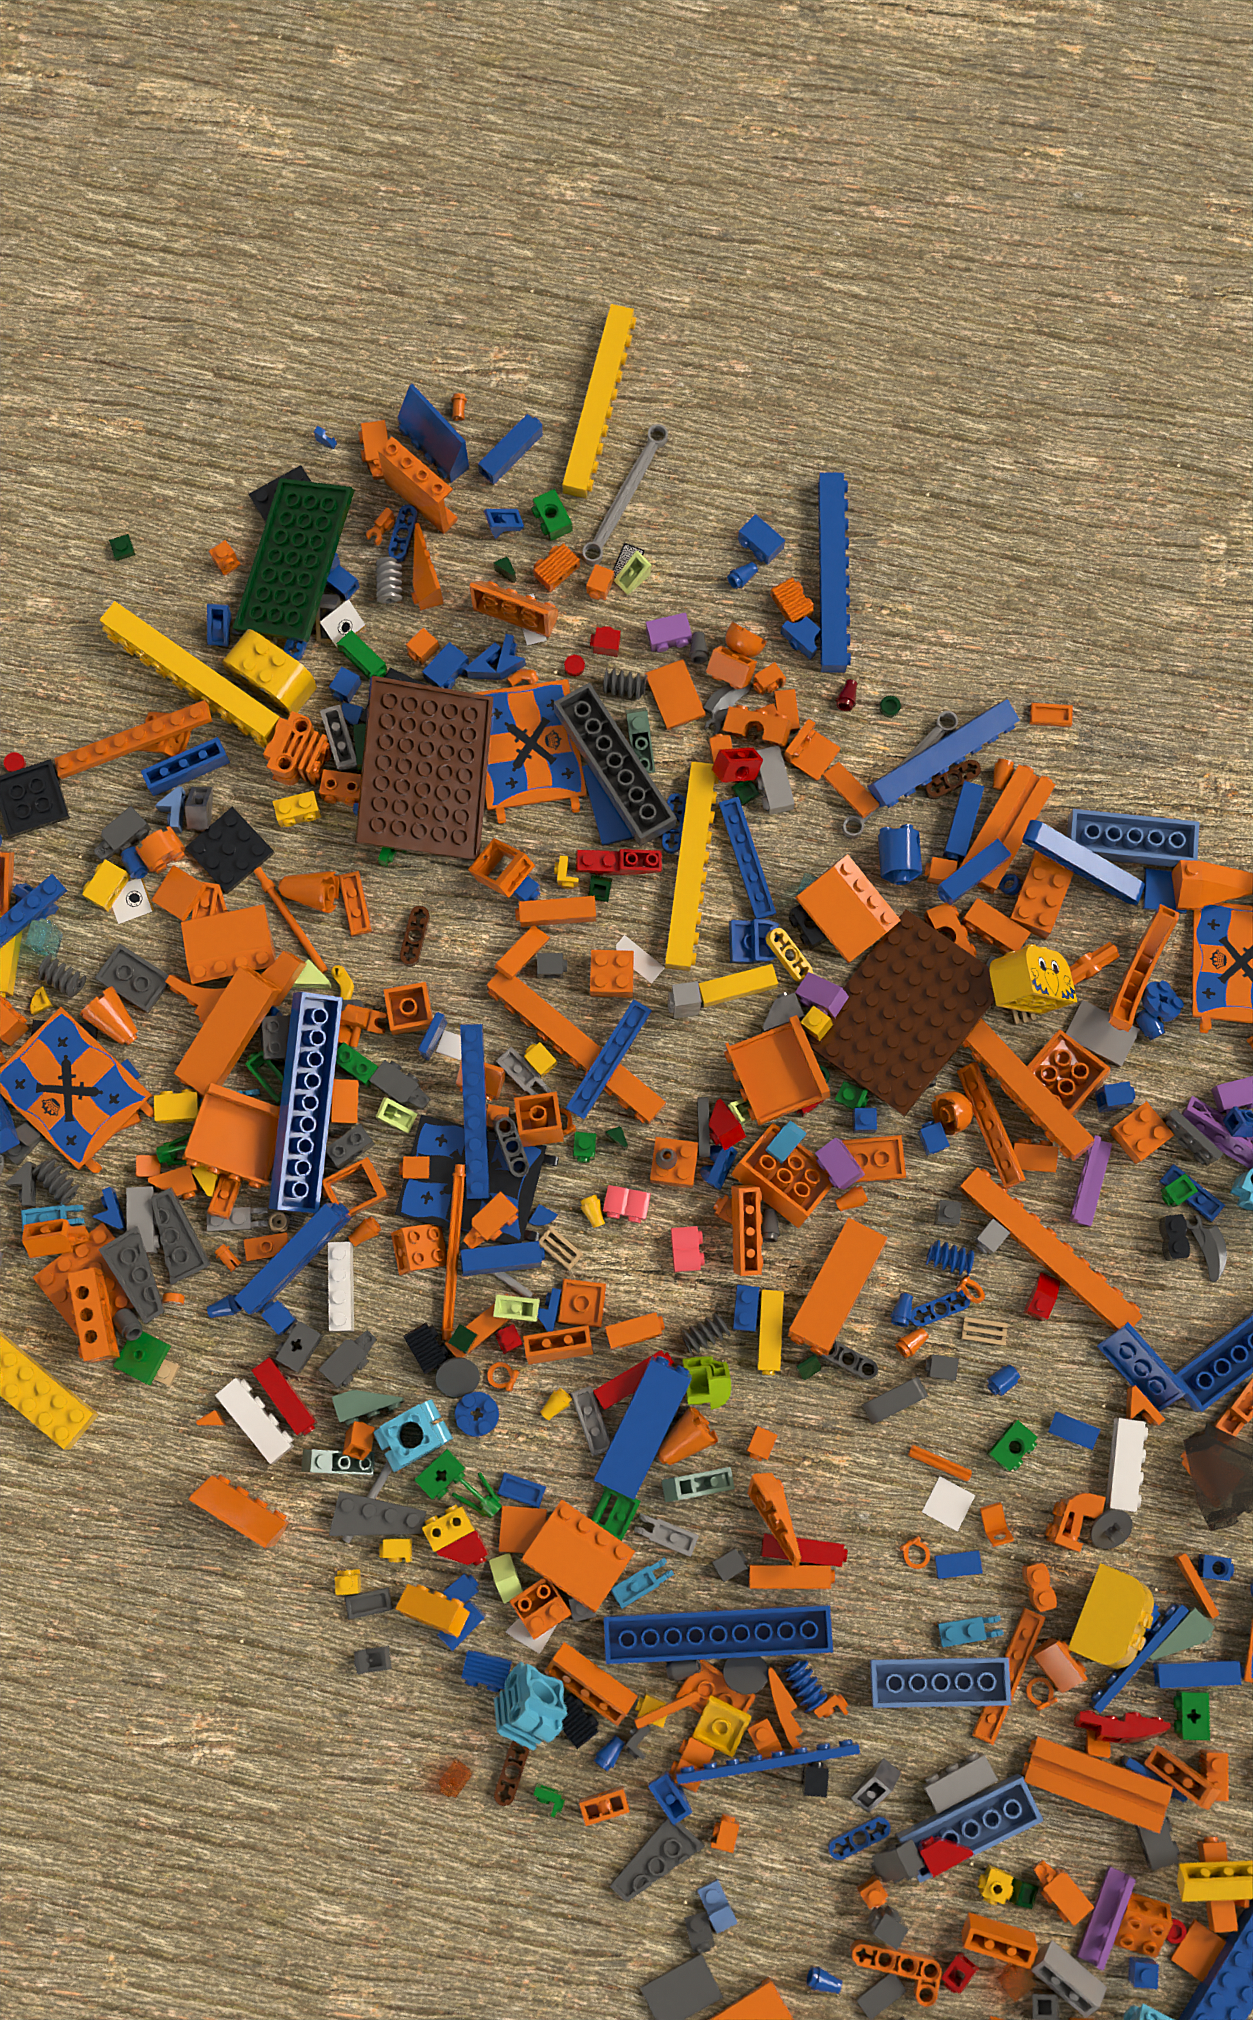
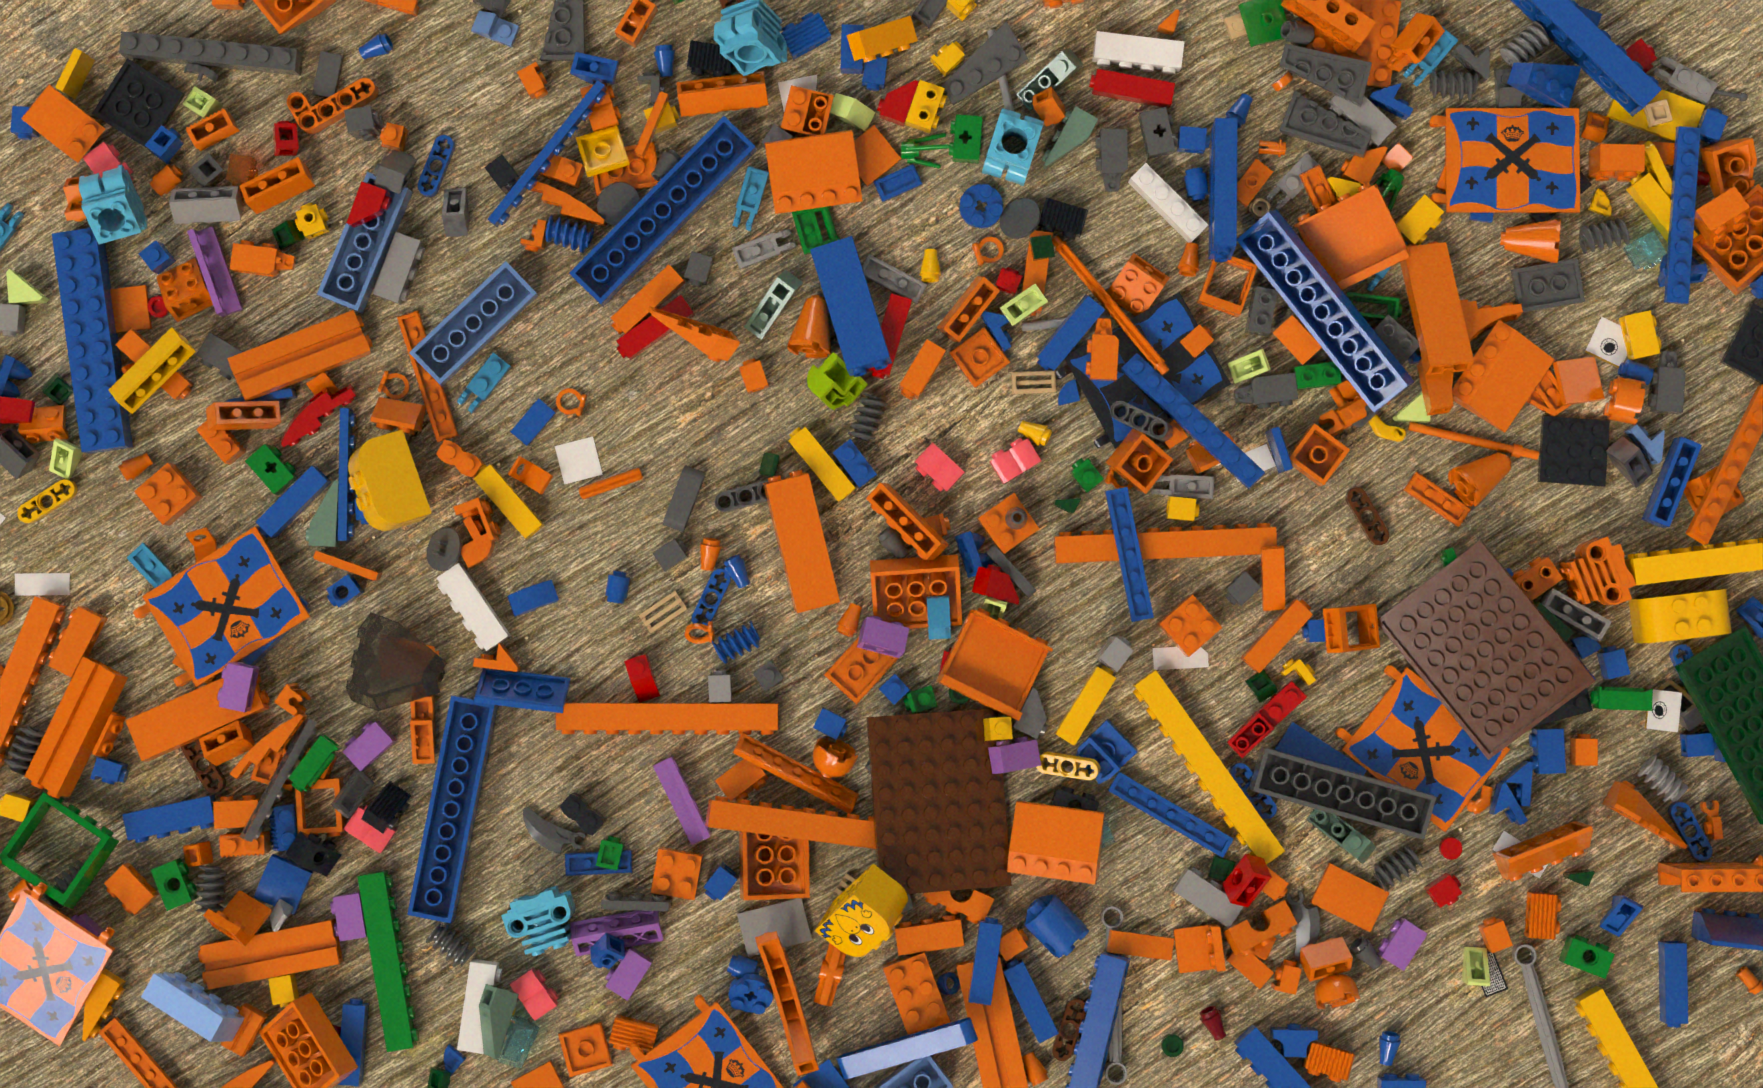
camera: 135 degrees right, 10 degrees up
(297, 809) = (1553, 529): yellow brick -> none
(307, 1282) = (1196, 184): none -> blue brick
(1000, 1450) = (574, 556): green brick -> none
(1030, 1521) = (508, 501): none -> yellow brick

